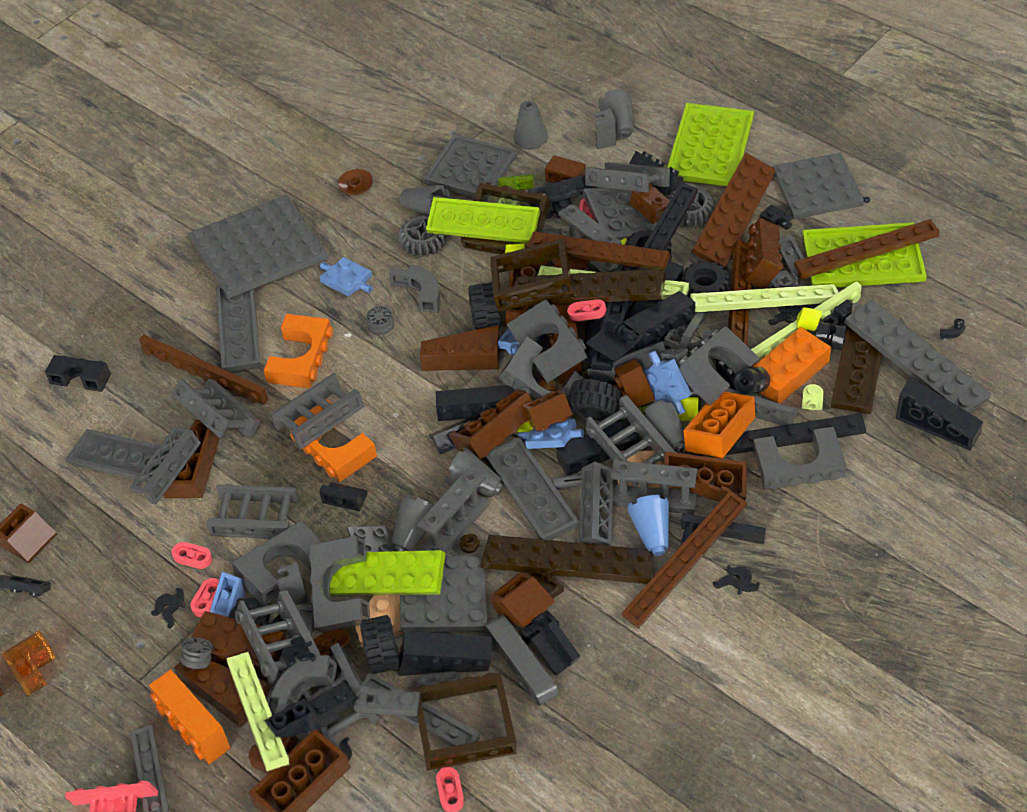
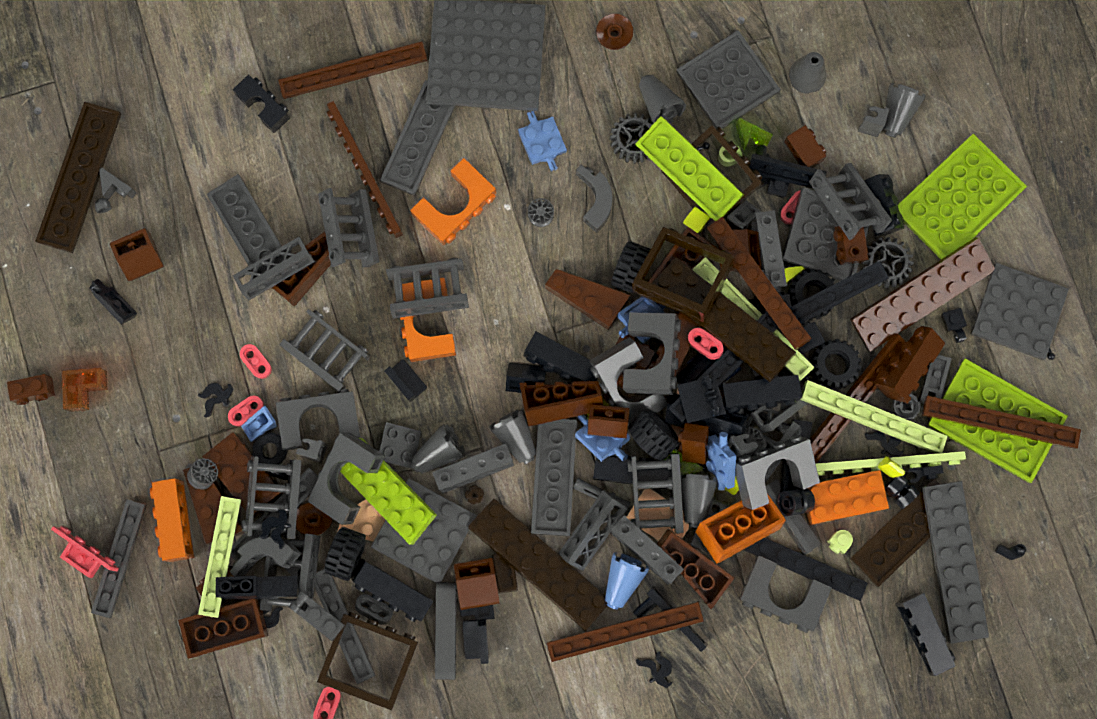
camera: 30 degrees right, 30 degrees up
(146, 313) = (352, 70): none -> reddish brown plate

